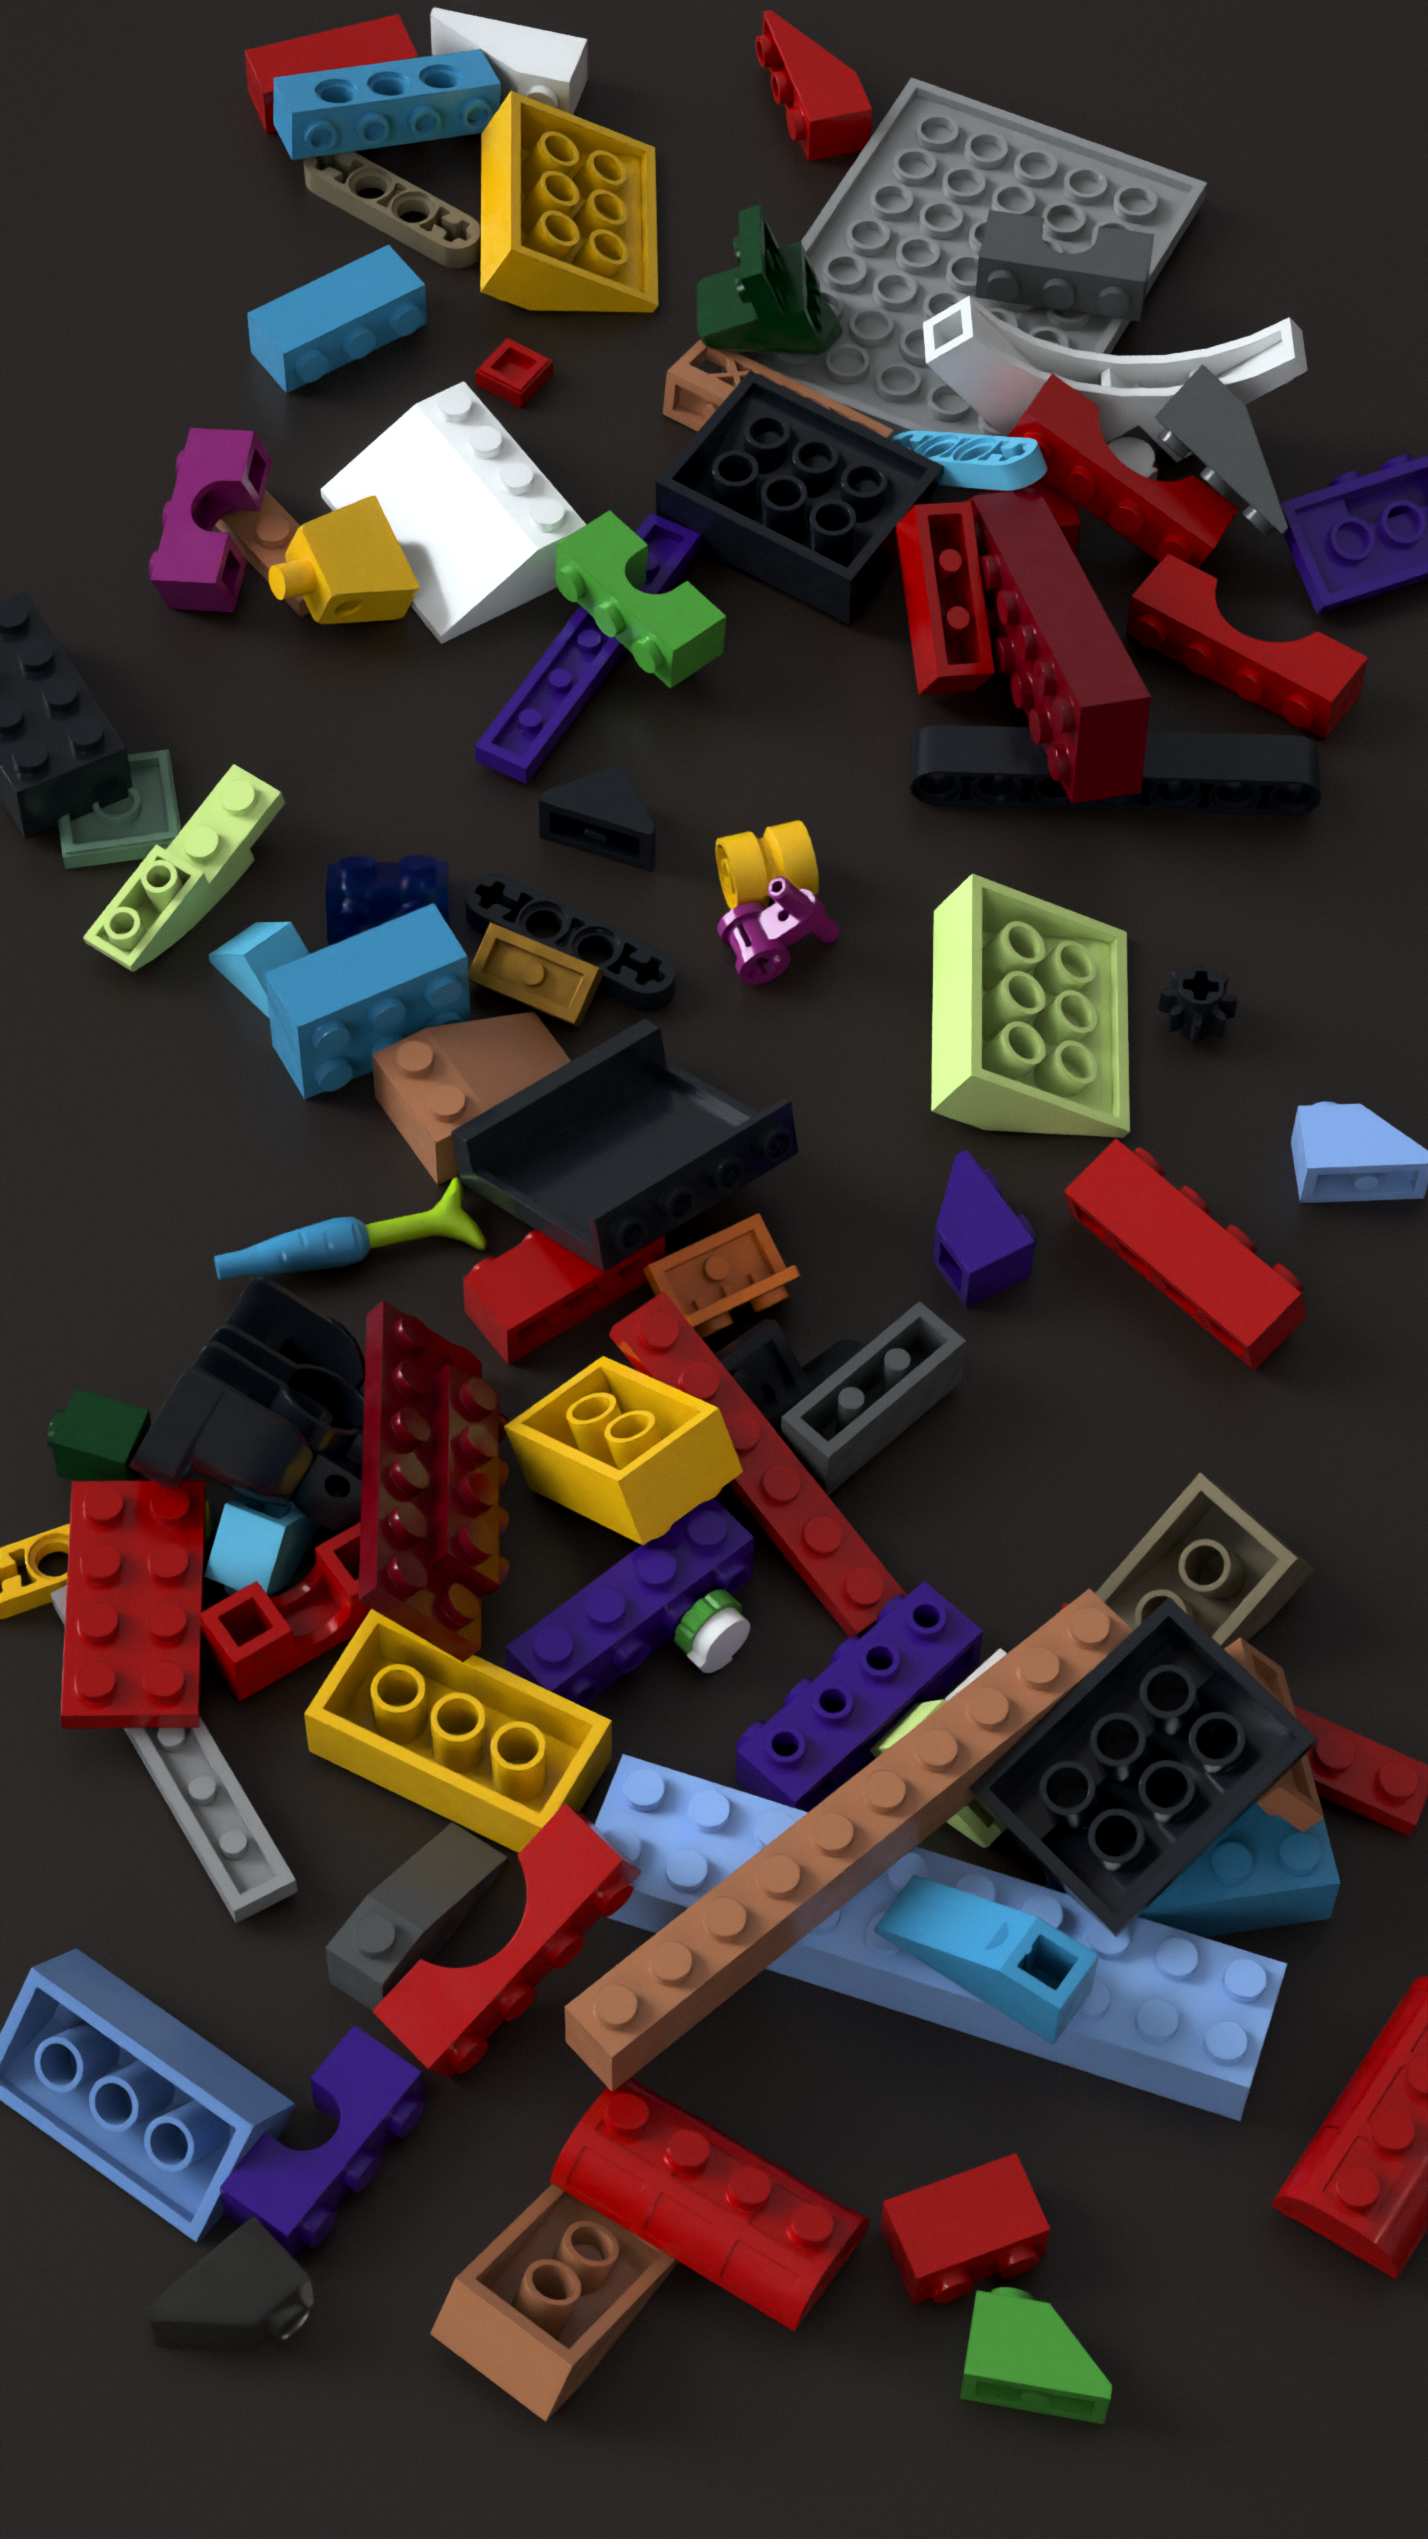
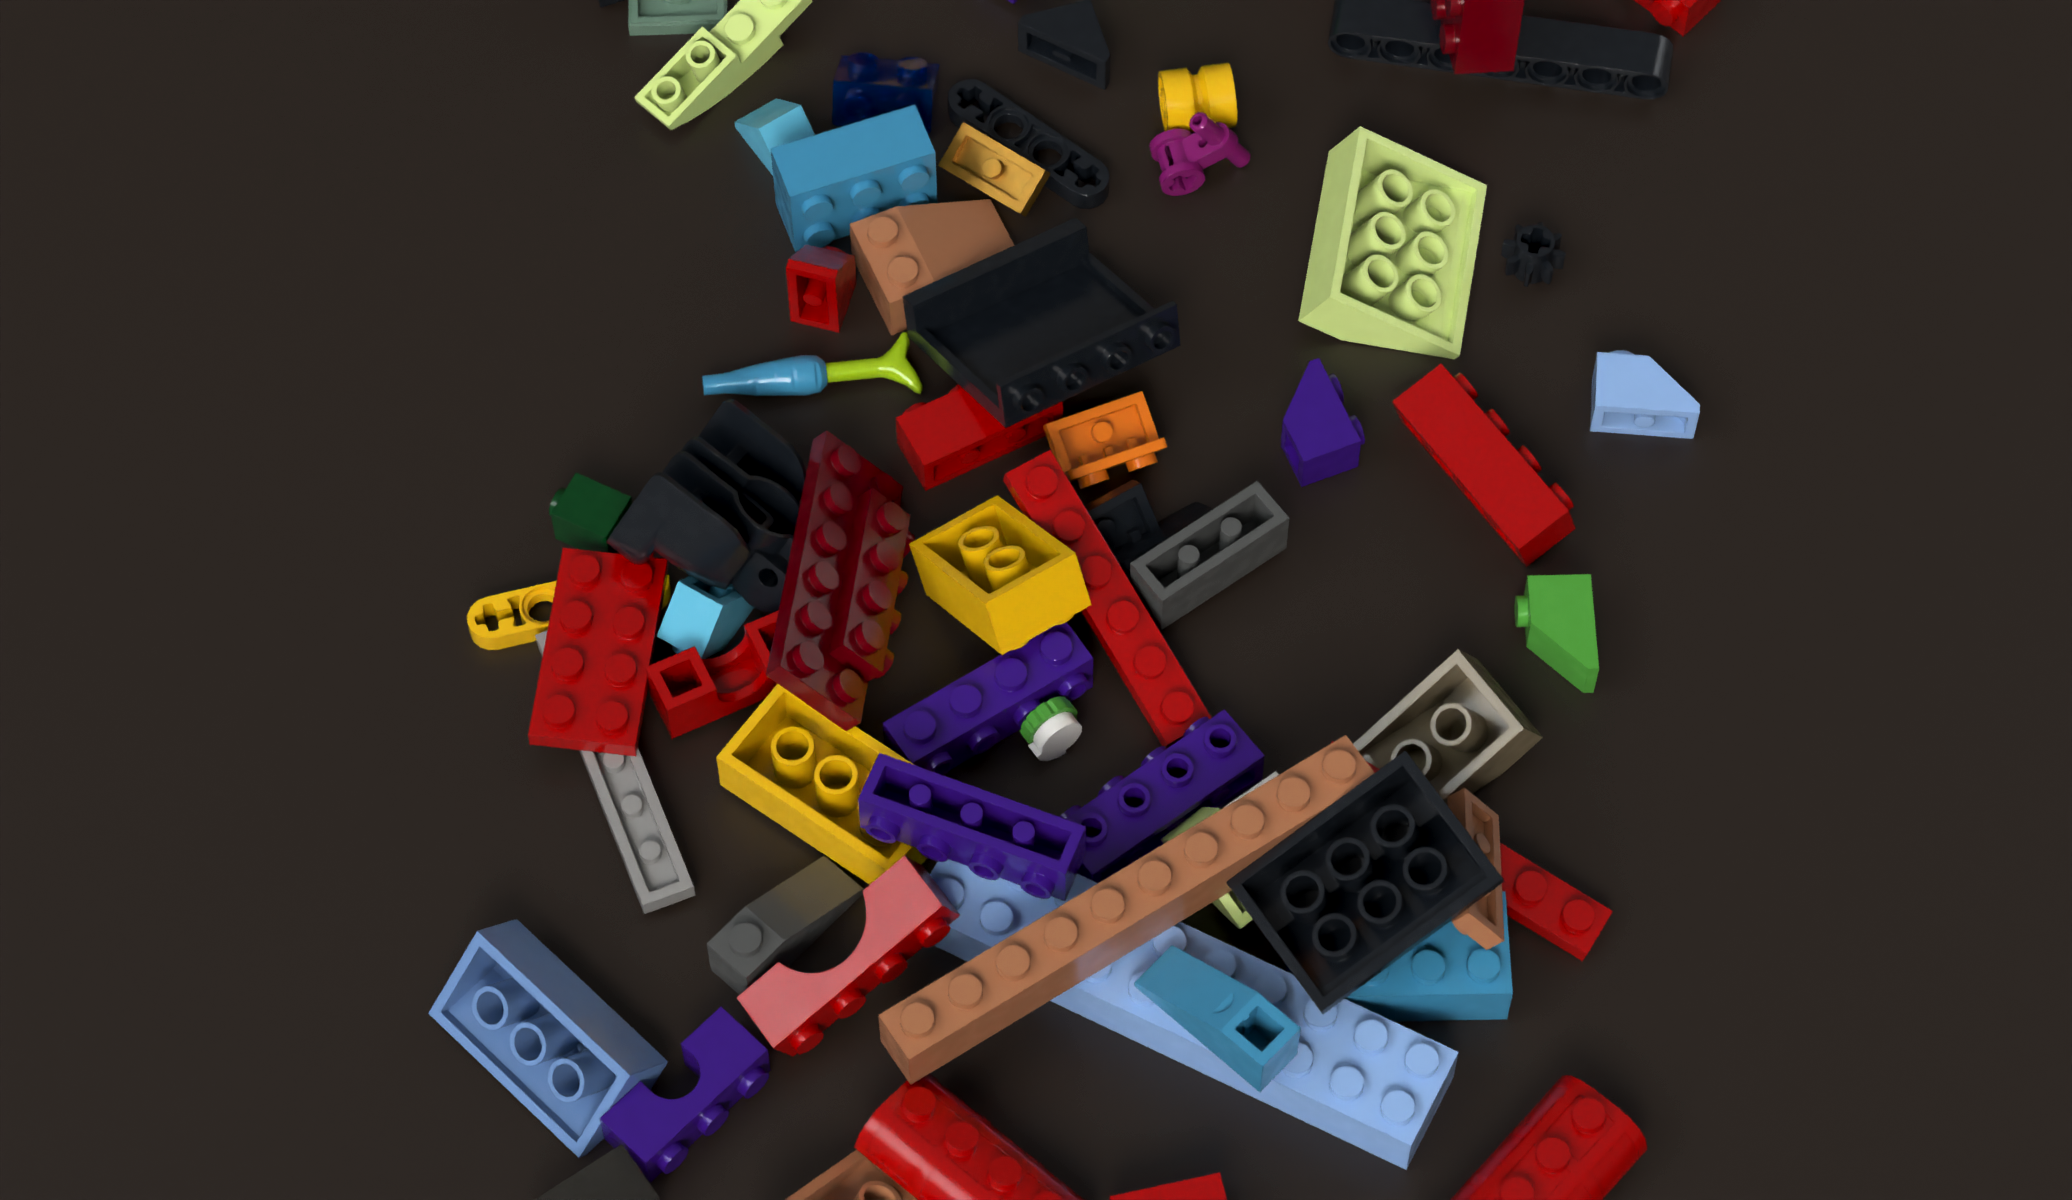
camera: 10 degrees right, 5 degrees up
(345, 1135) = (820, 286): none -> red slope
(642, 1759) = (971, 828): none -> dark purple brick
(1313, 1434) = (1561, 625): none -> bright green slope

